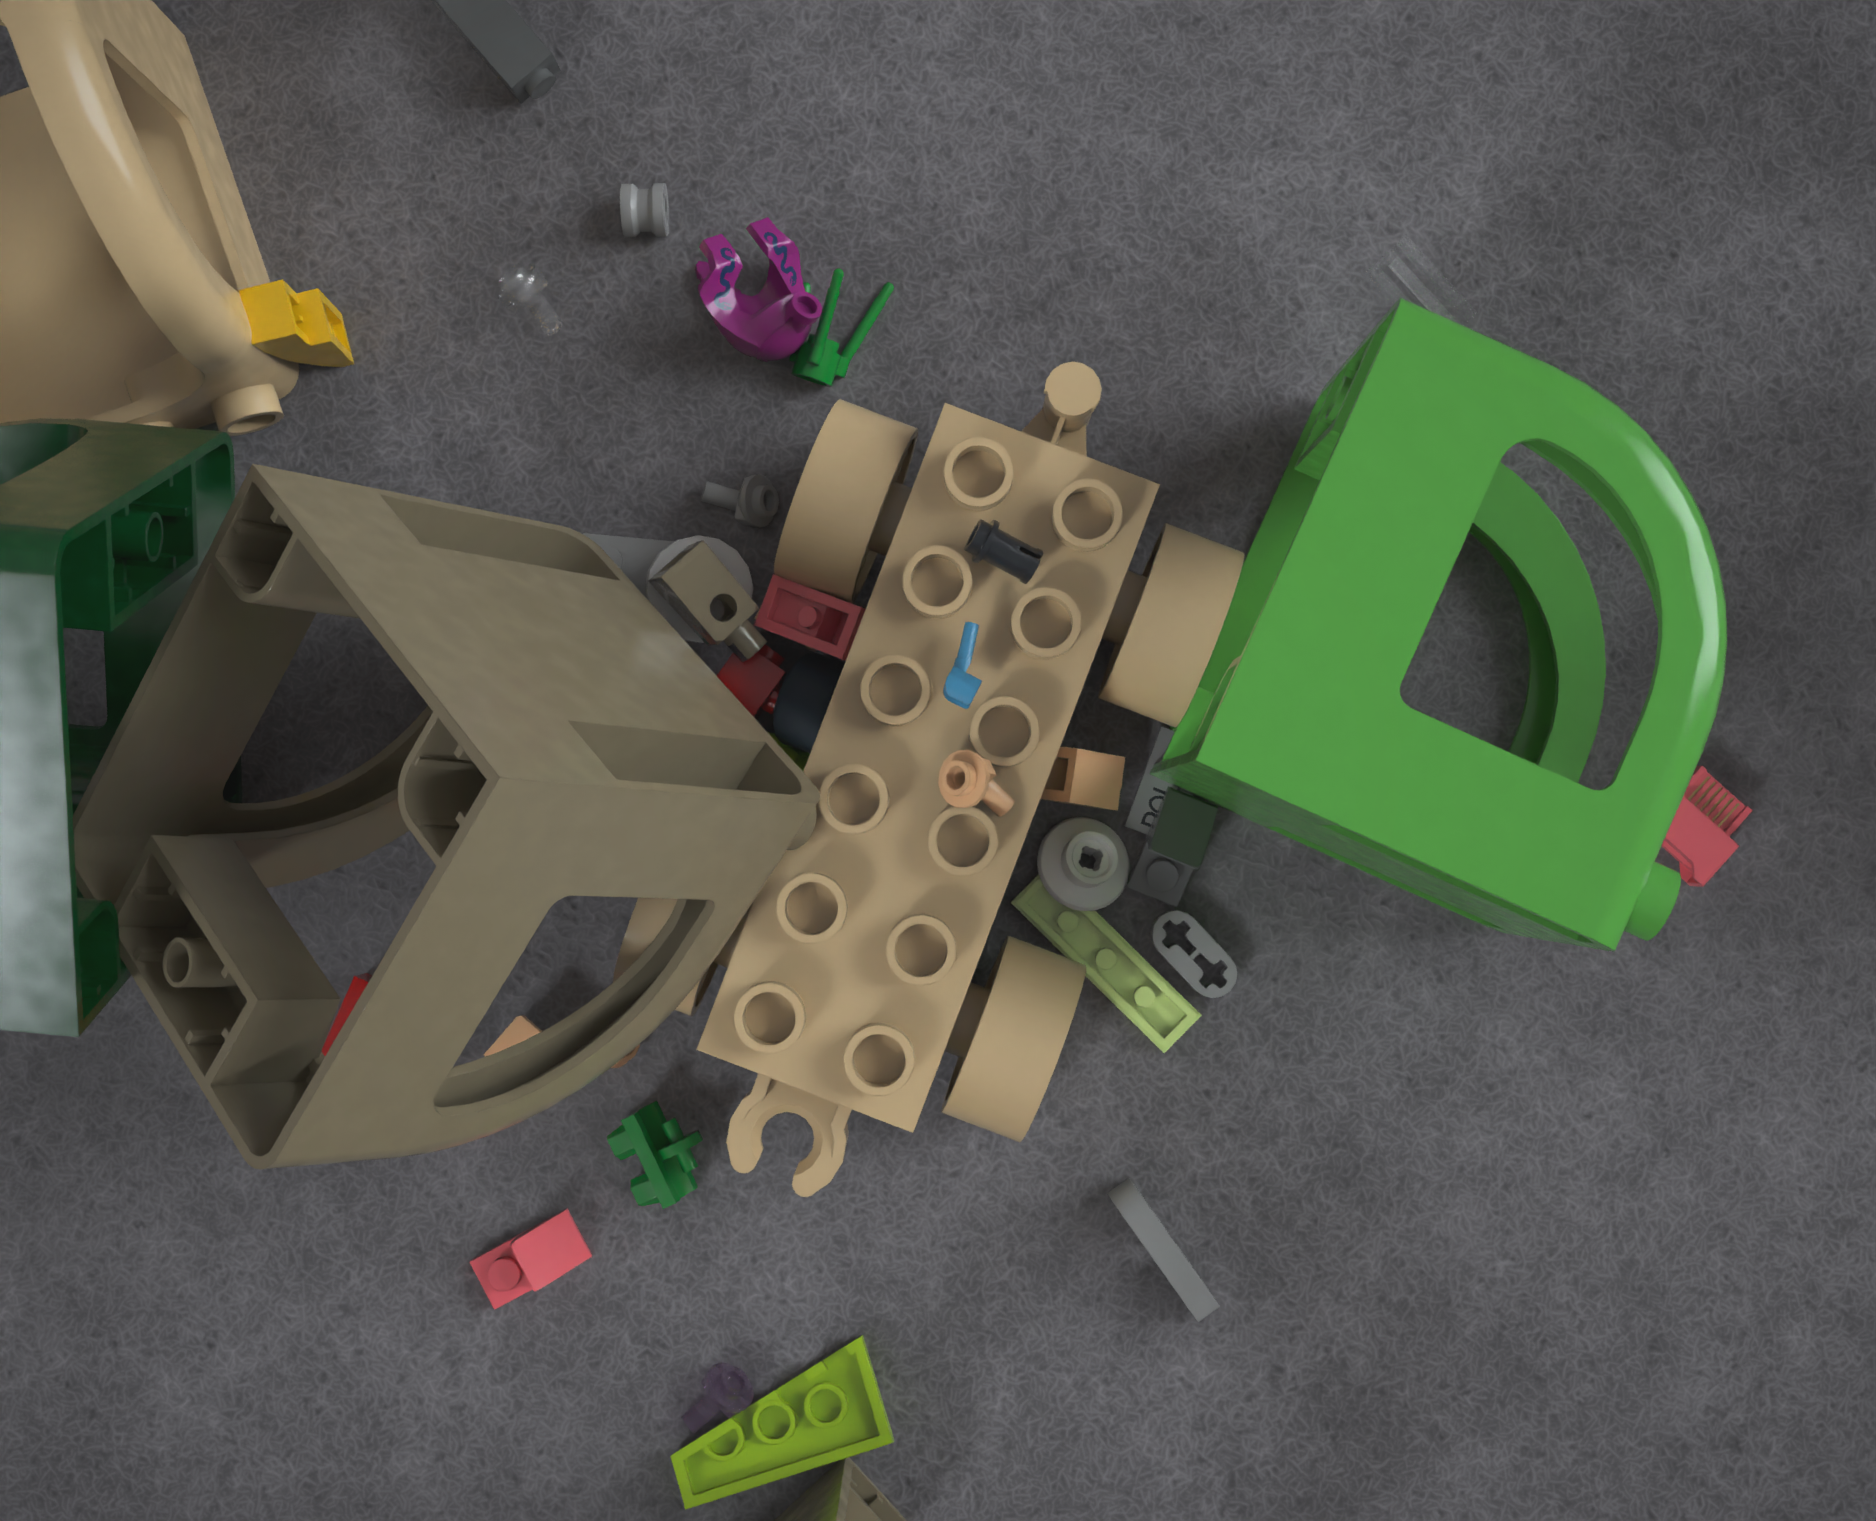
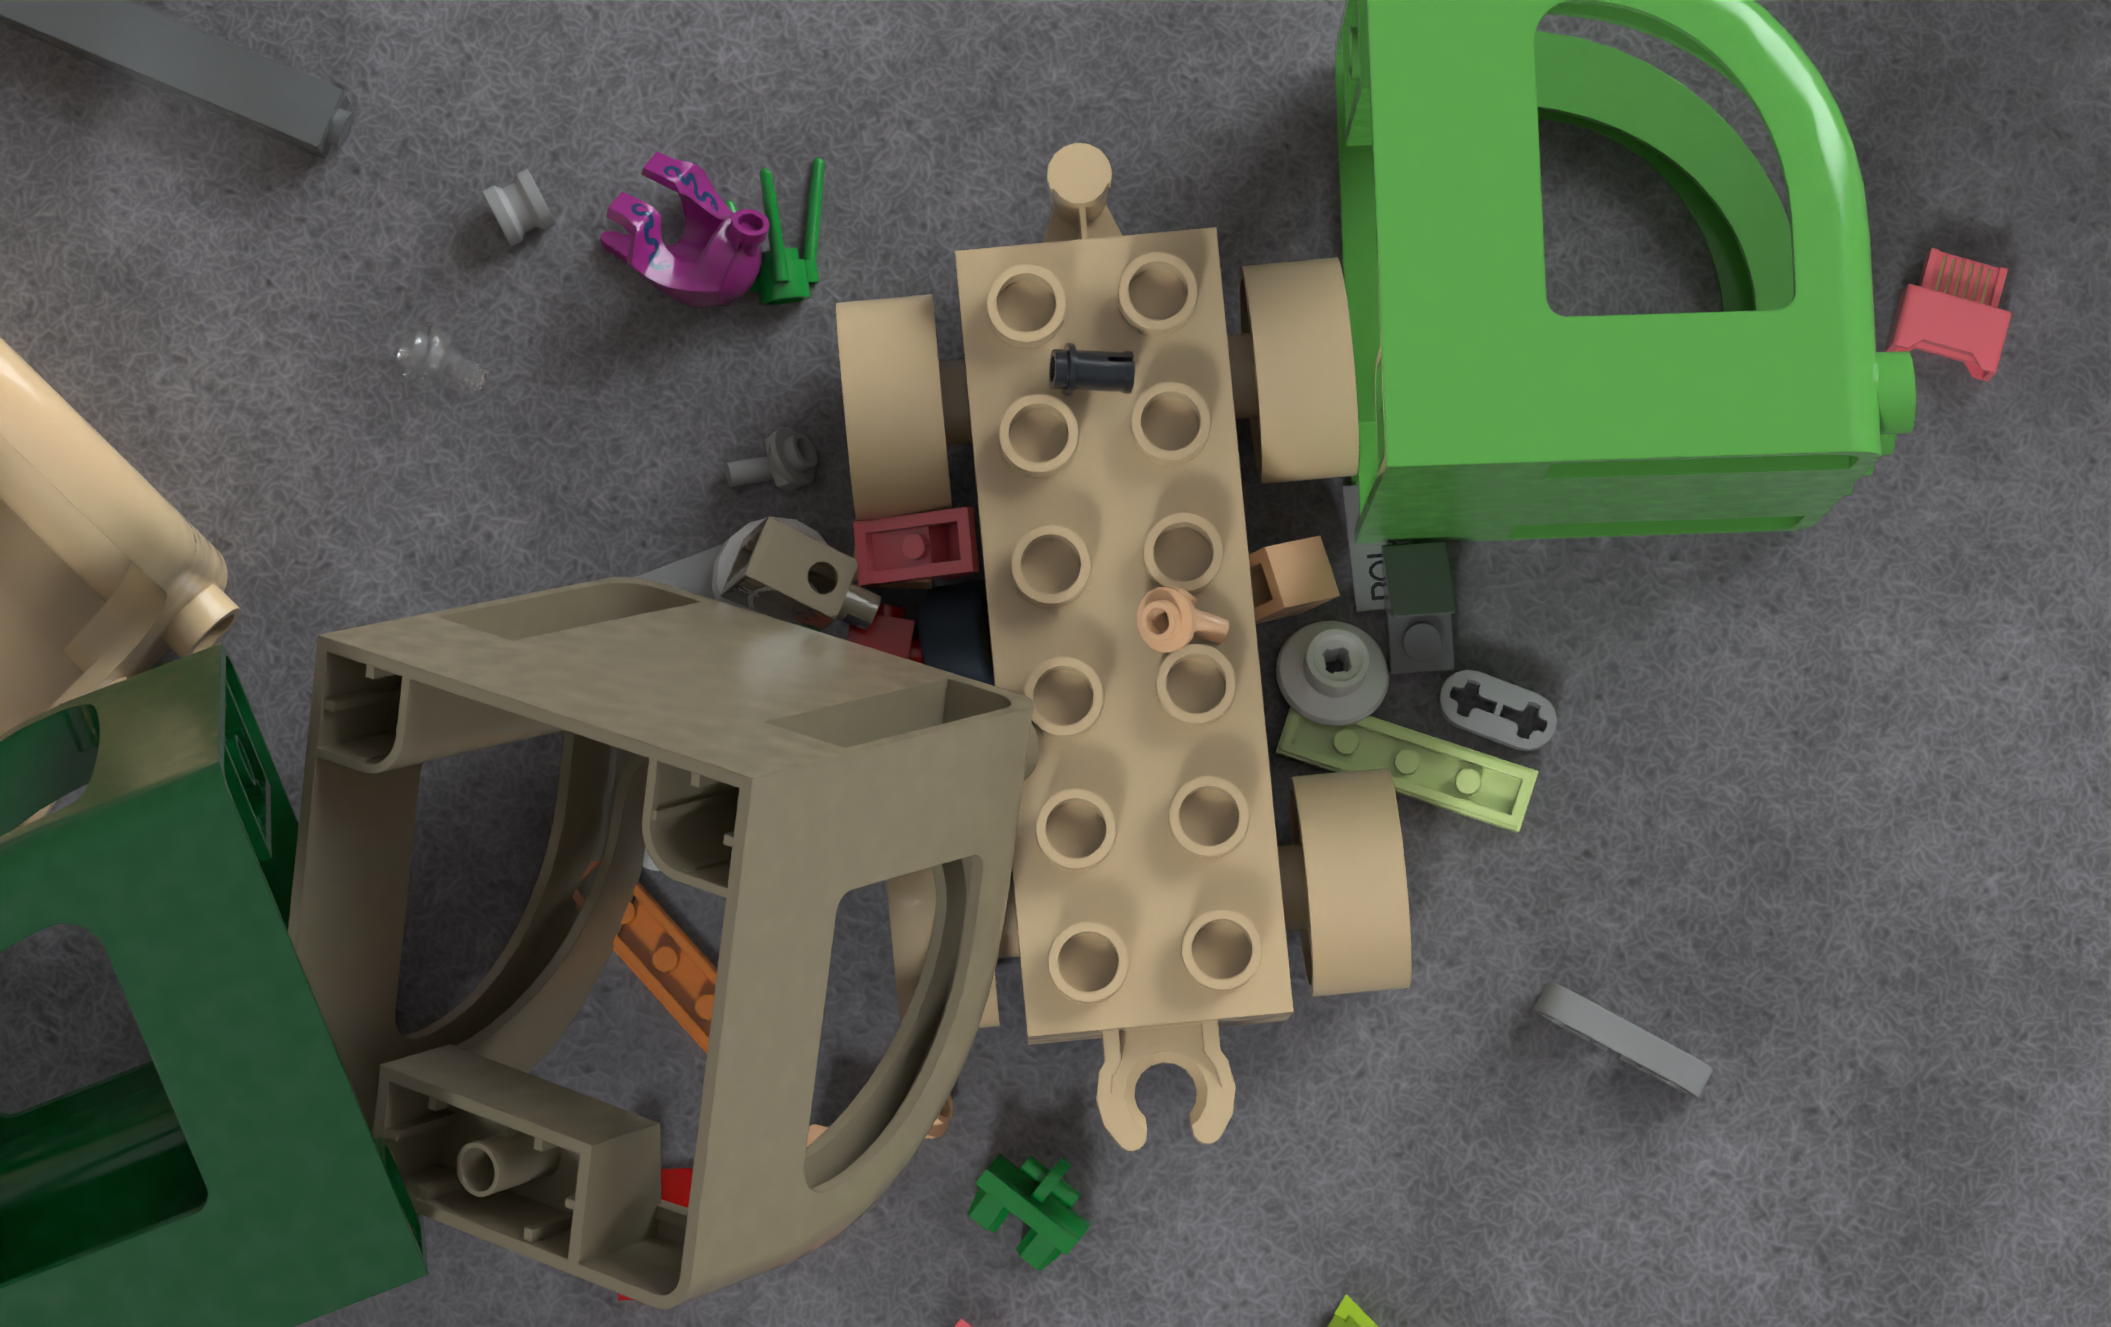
camera: 30 degrees left, 5 degrees down
(296, 325) = (221, 504): yellow slope -> none
(960, 686) = (1116, 527): dark azure hand -> none

